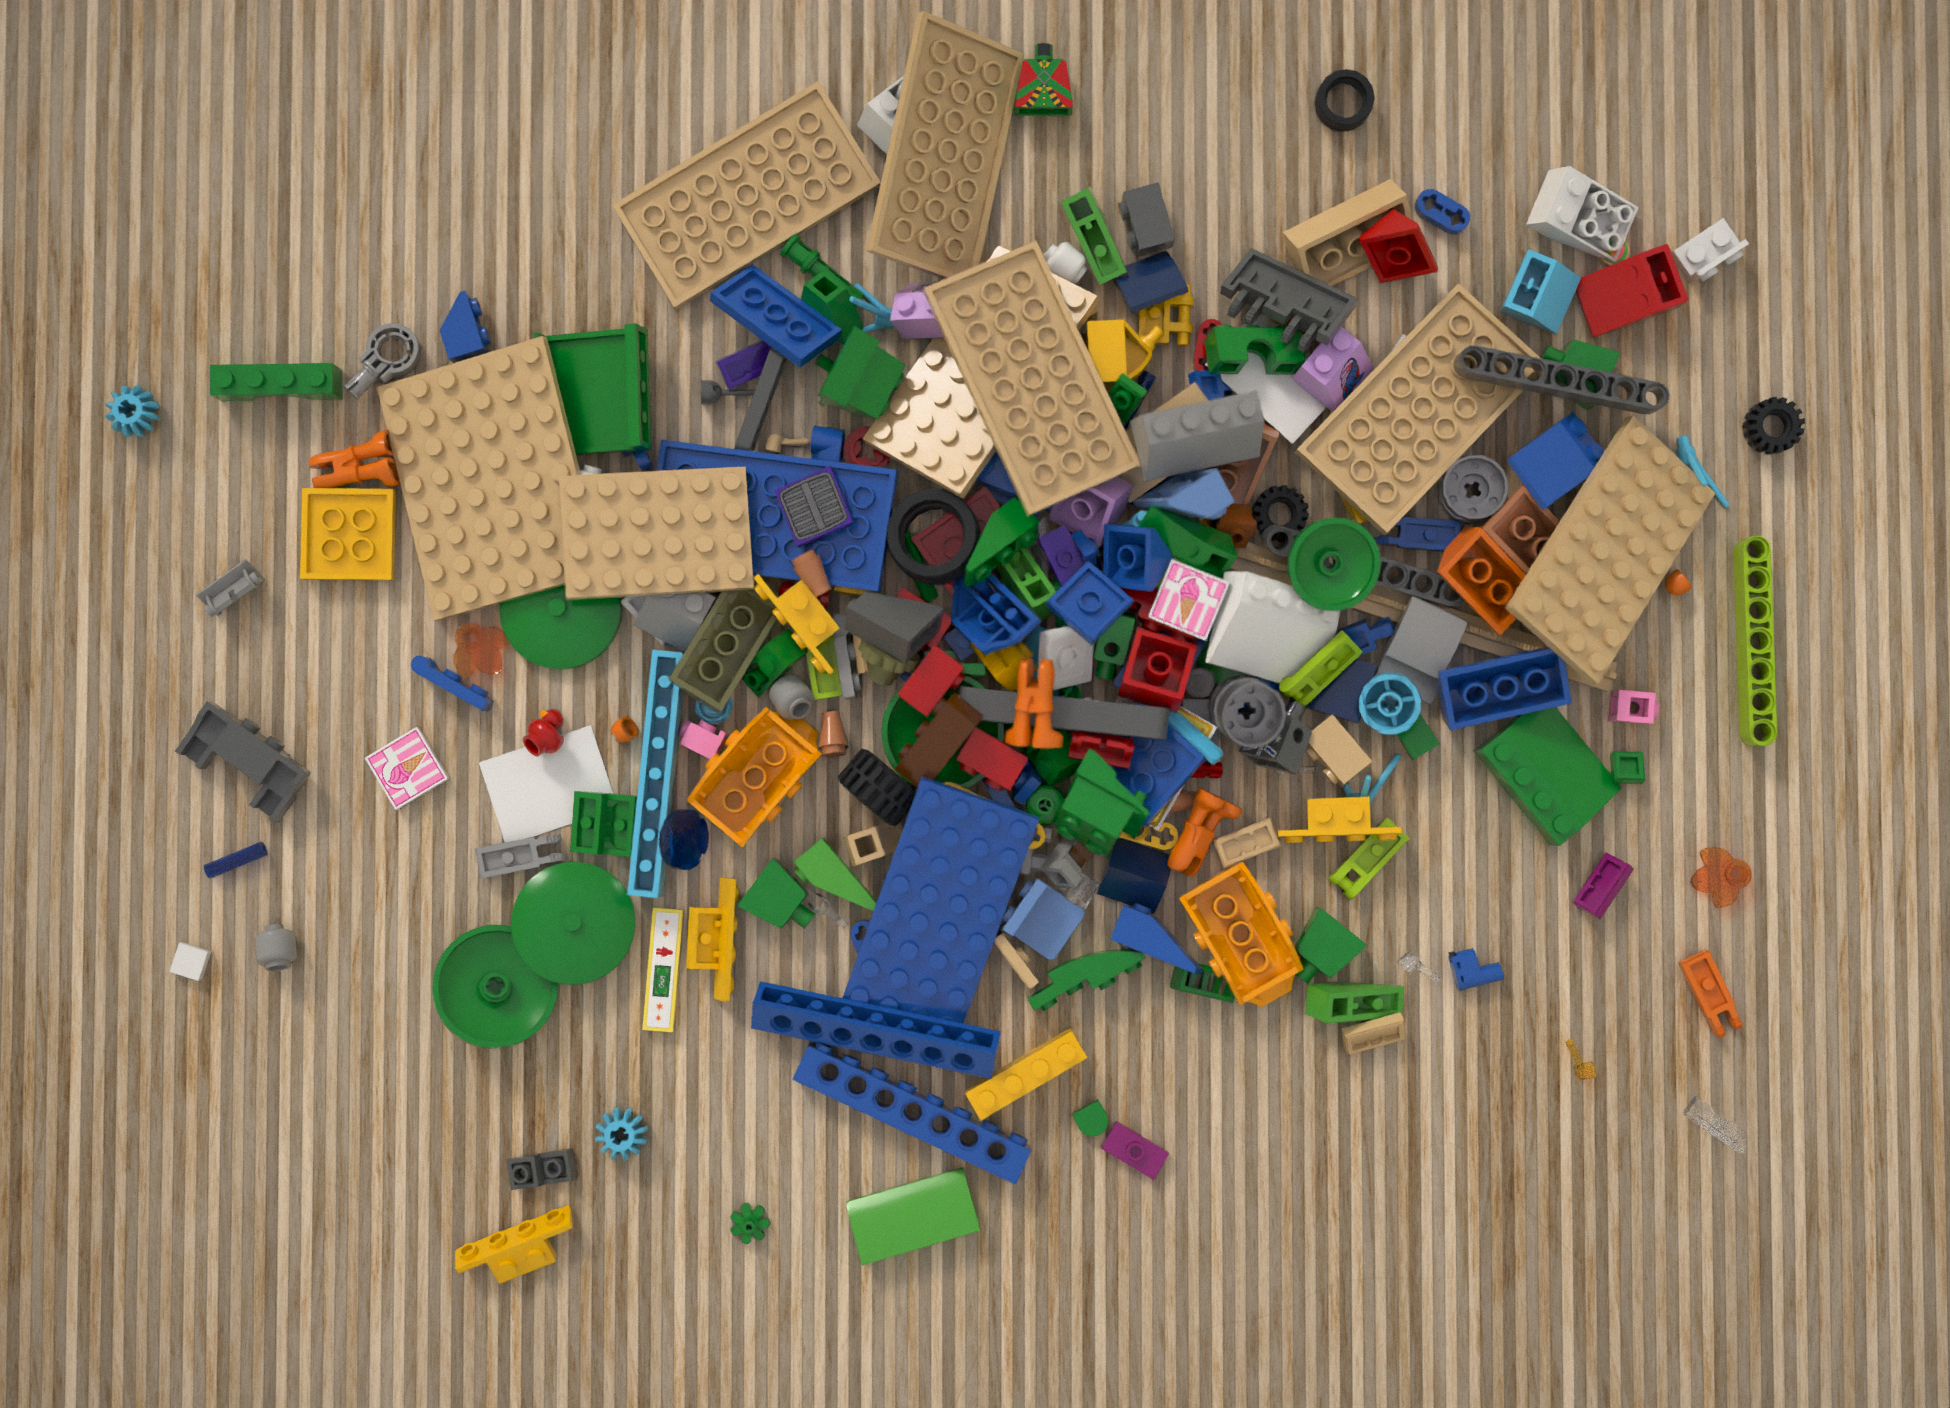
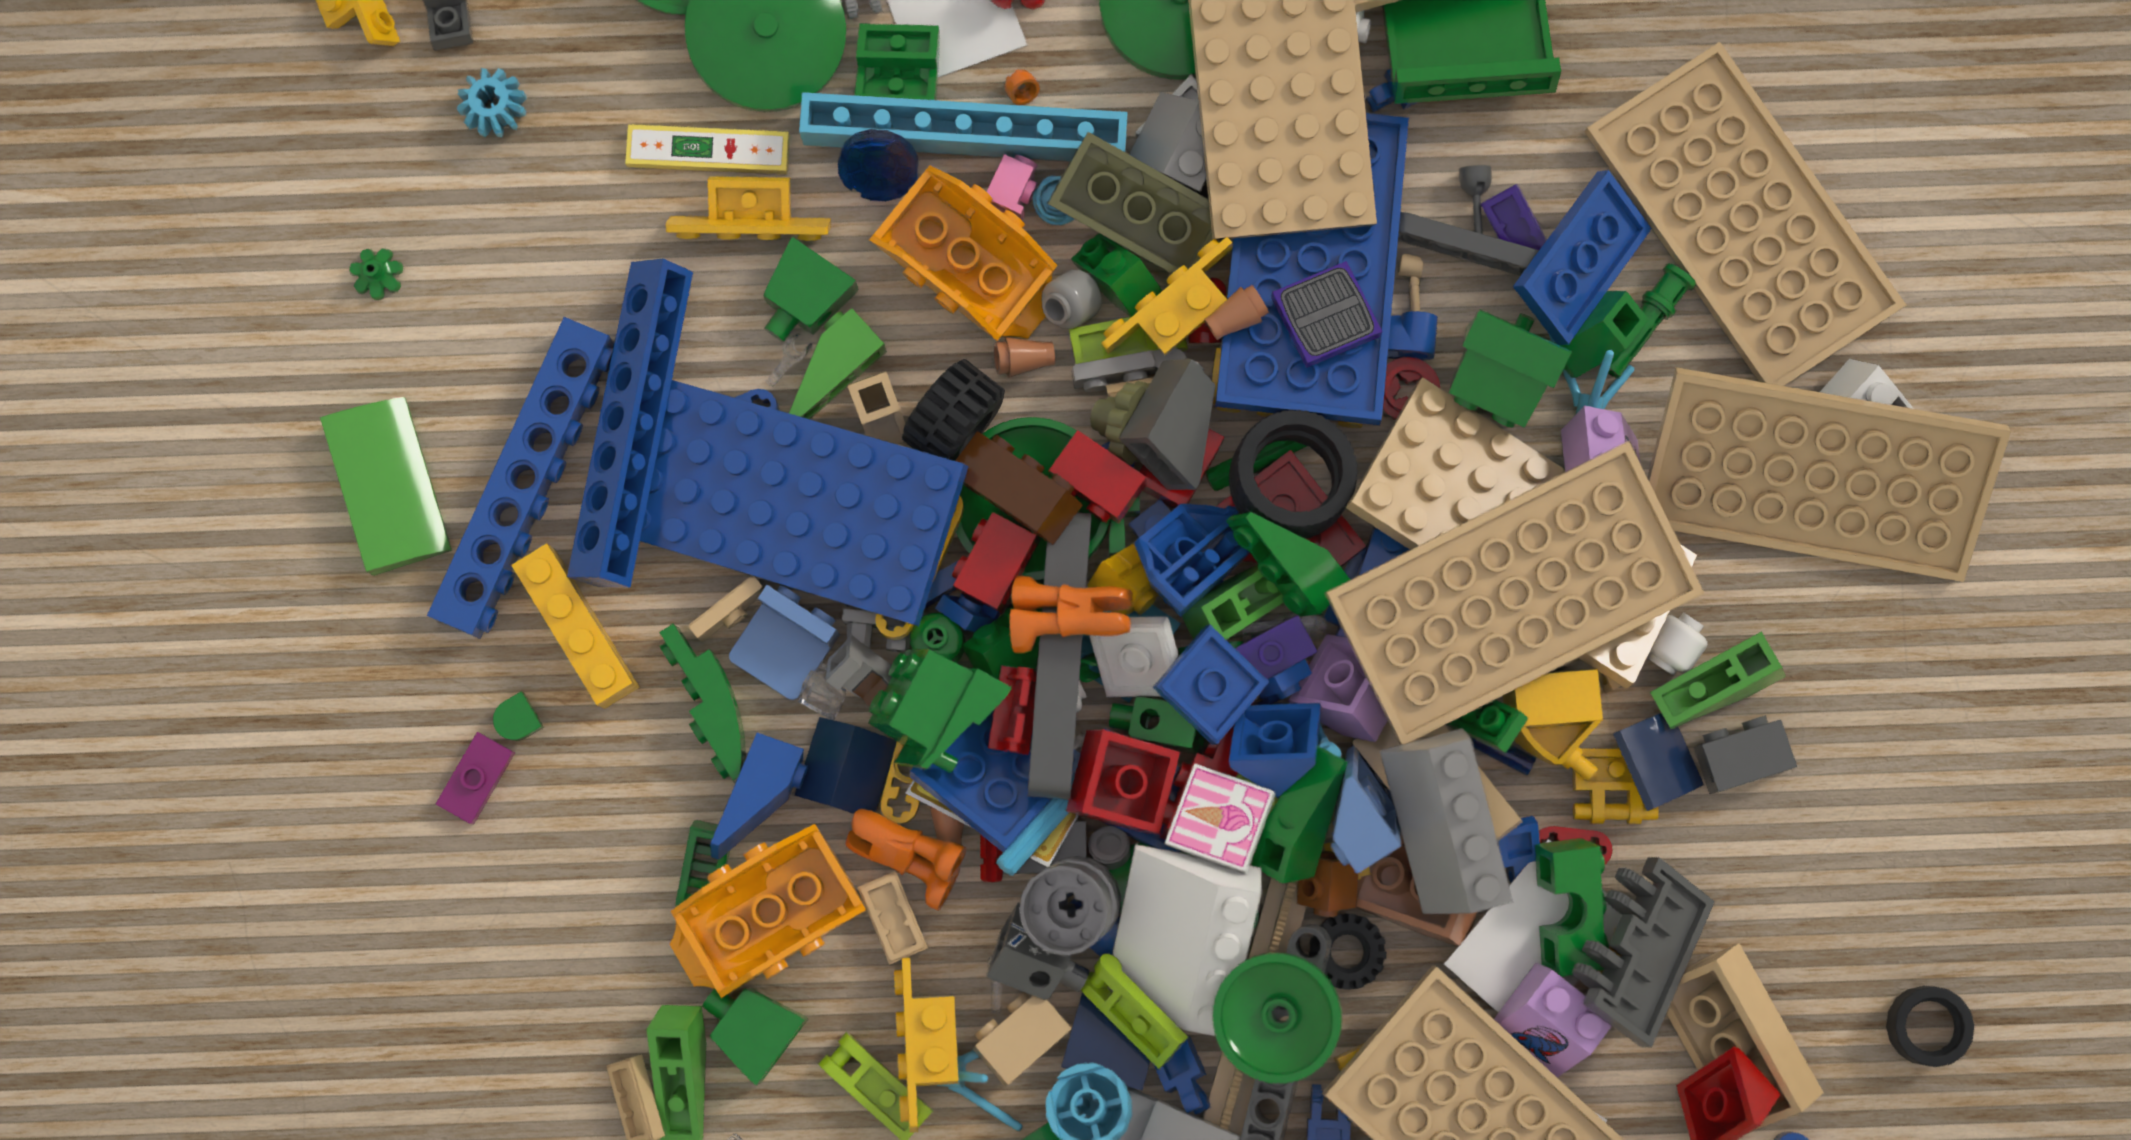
camera: 90 degrees right, 5 degrees down
(1044, 85) = (1921, 607): torso -> none

